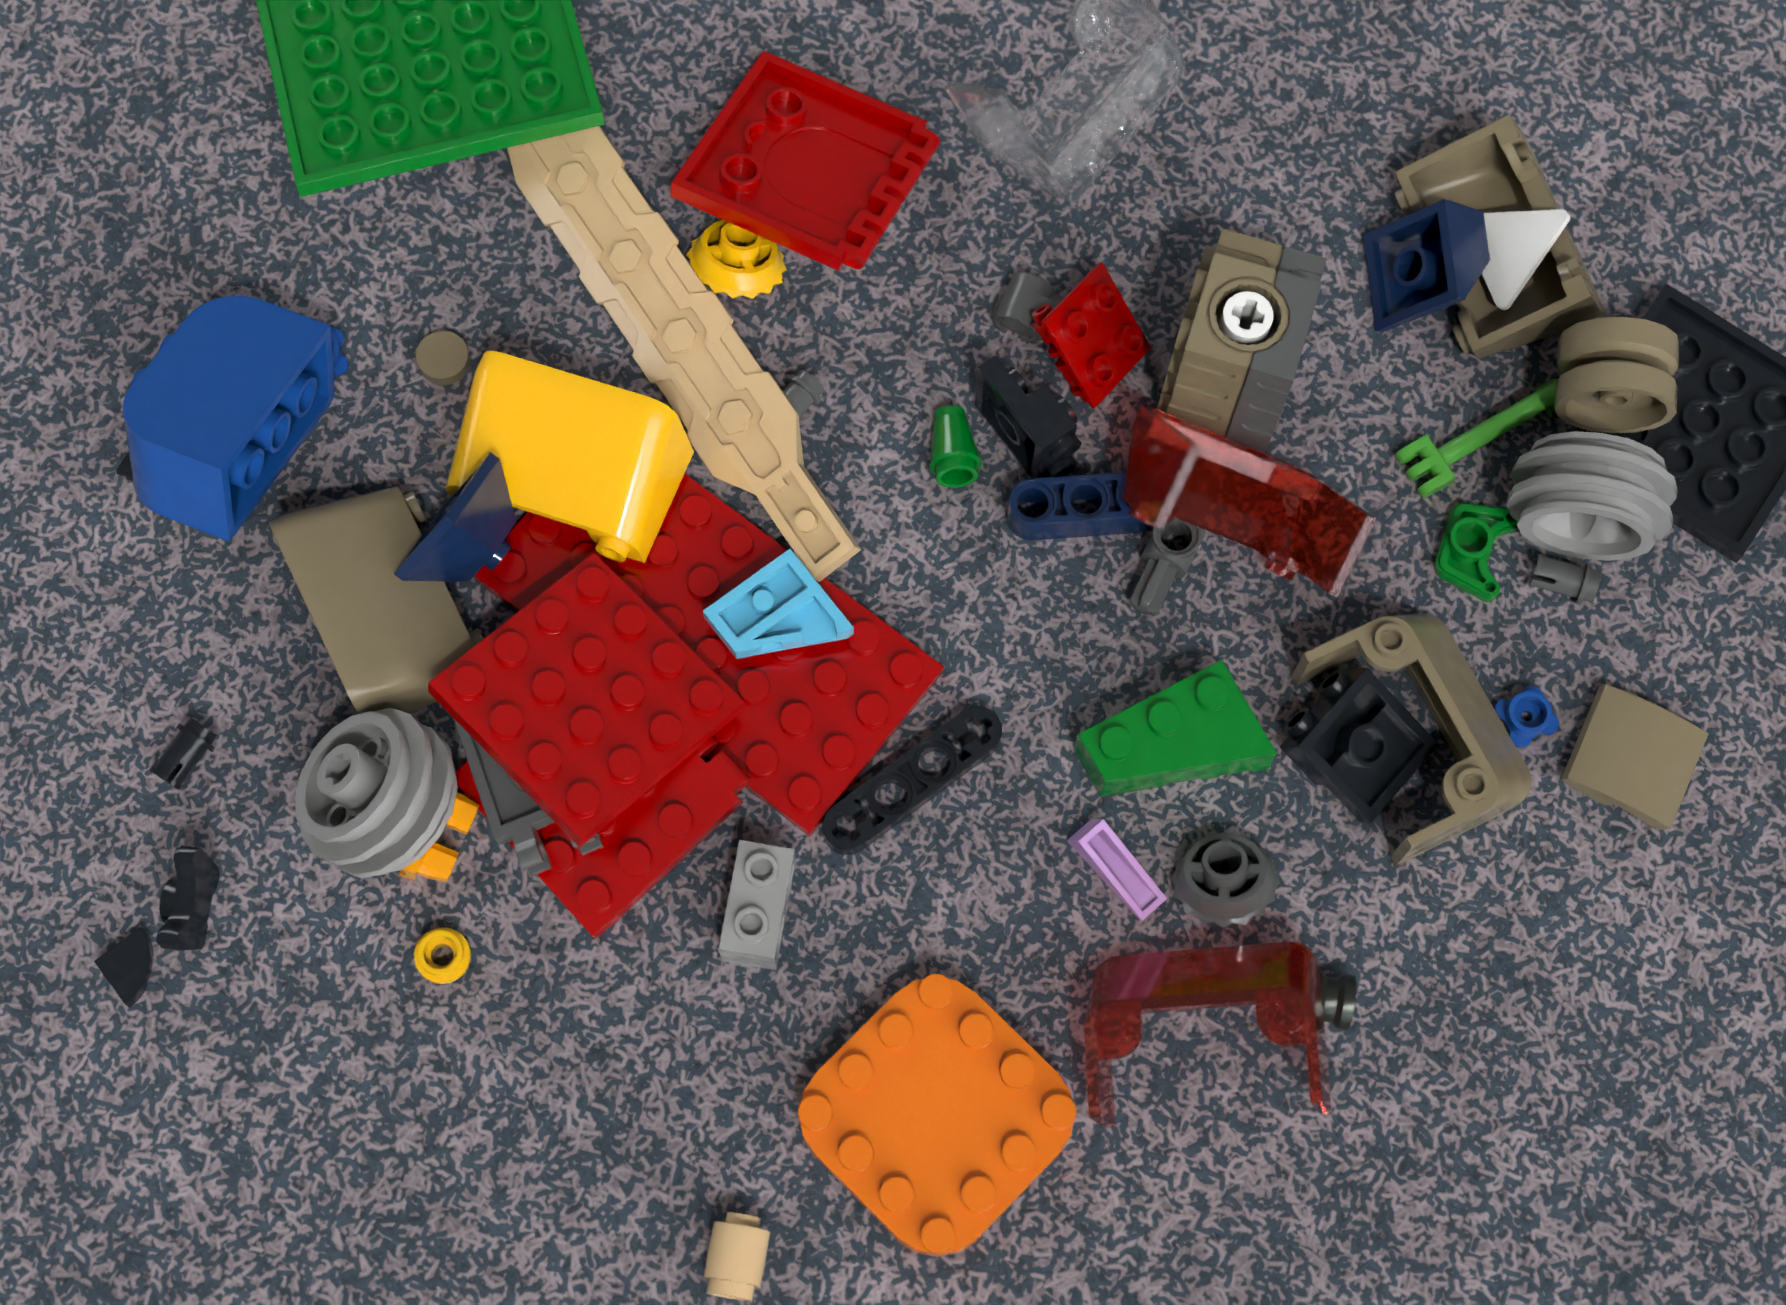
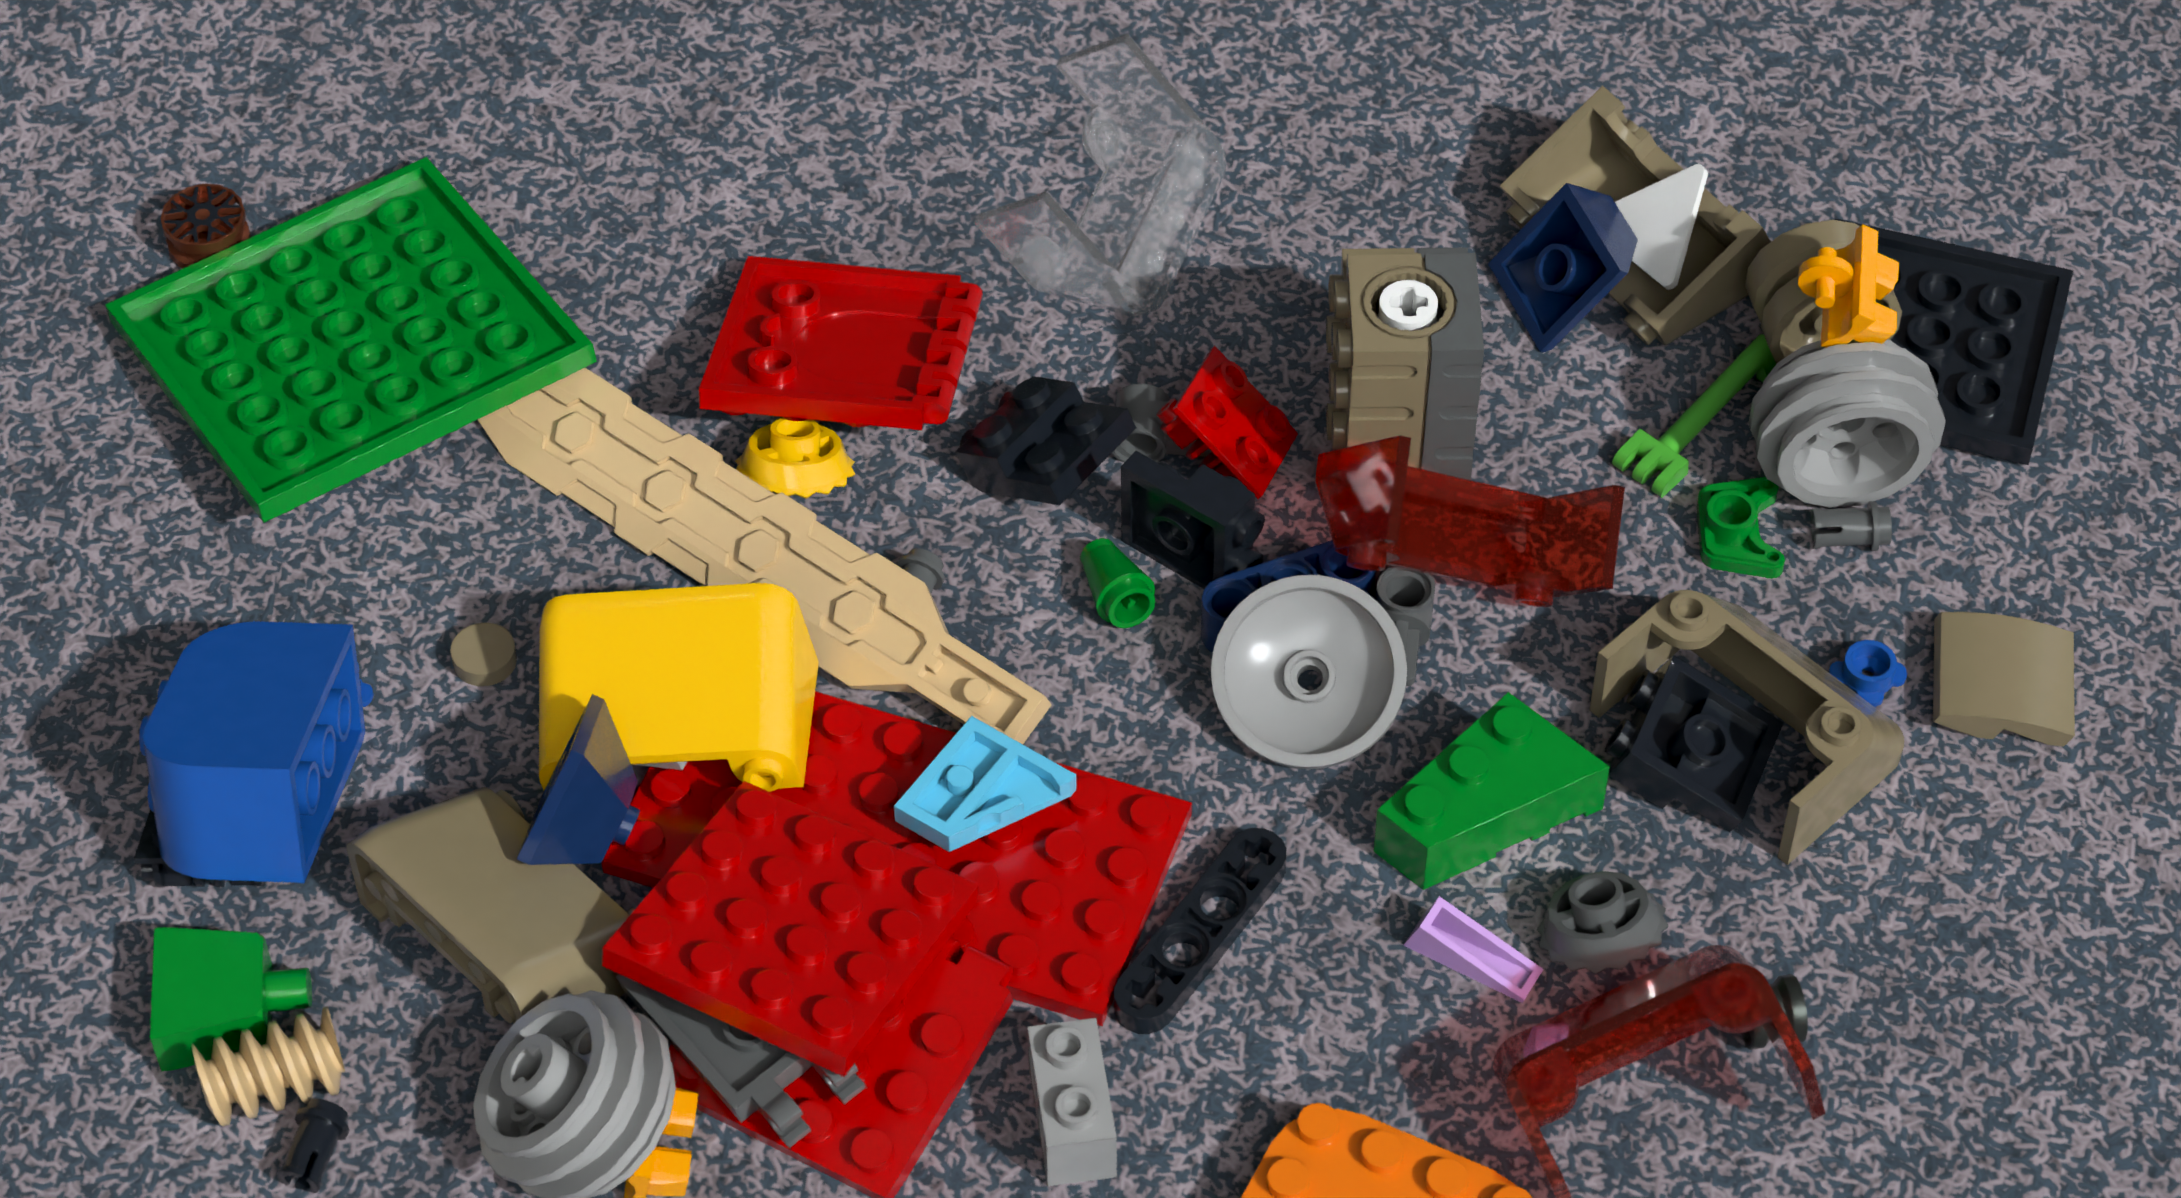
camera: 15 degrees left, 20 degrees down
(148, 603) = (213, 988): none -> green torso
(167, 683) = (270, 1067): none -> tan piece
(937, 303) = (1041, 442): none -> black plate
(1034, 593) = (1299, 628): none -> light grey dish
(1627, 398) = (1847, 289): none -> light orange hips

